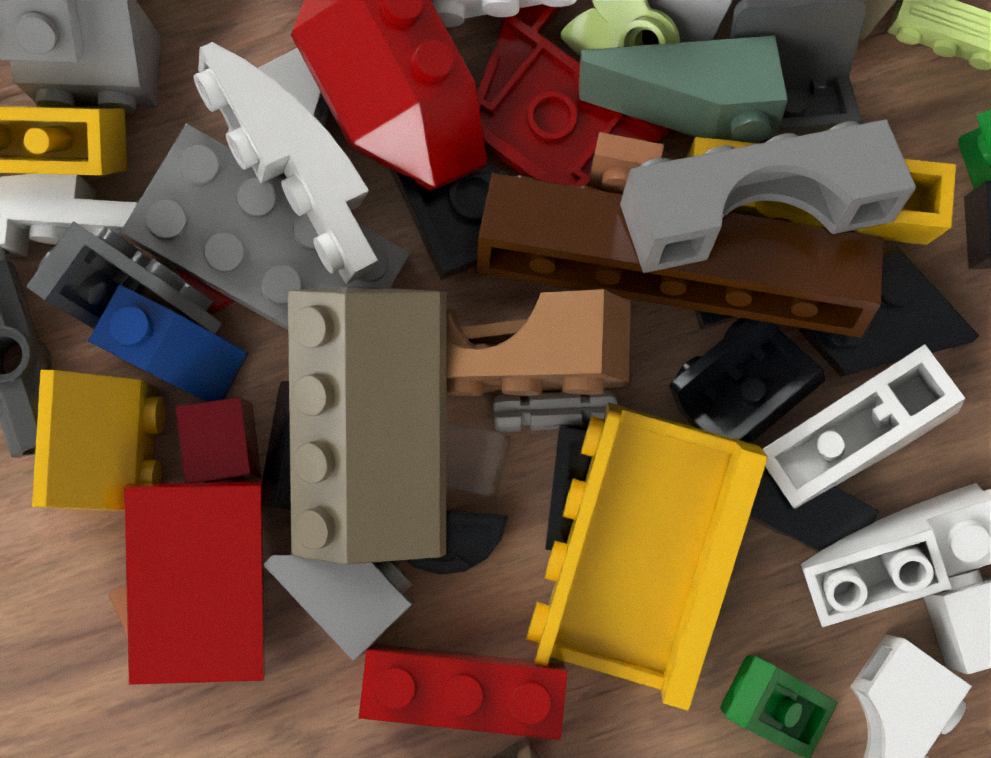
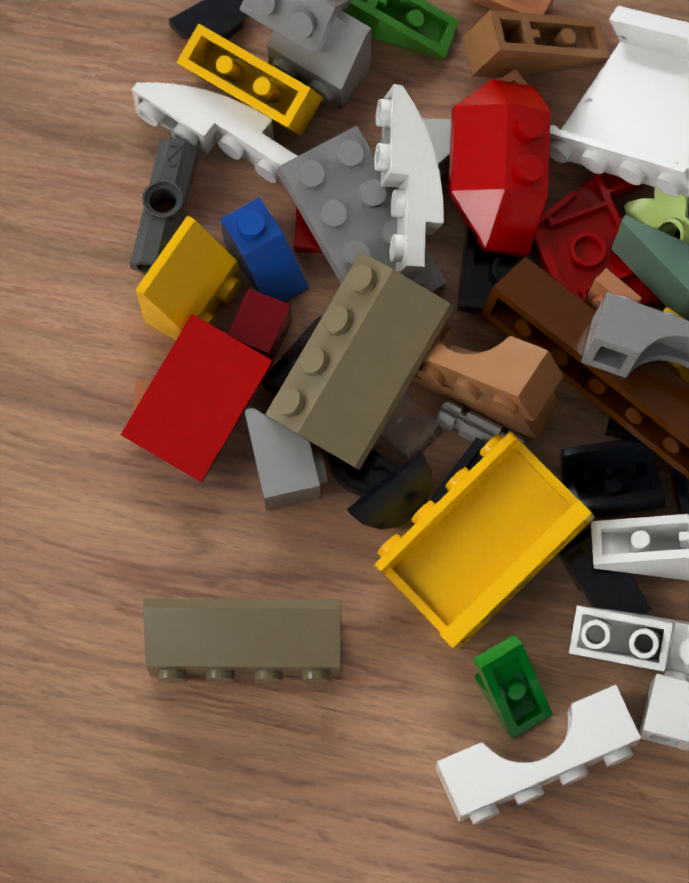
camera: 30 degrees right, 10 degrees down
(88, 268) = (249, 175): dark grey bracket -> none
(463, 691) = (320, 559): red brick -> none
(507, 555) = (397, 496): none -> black tile

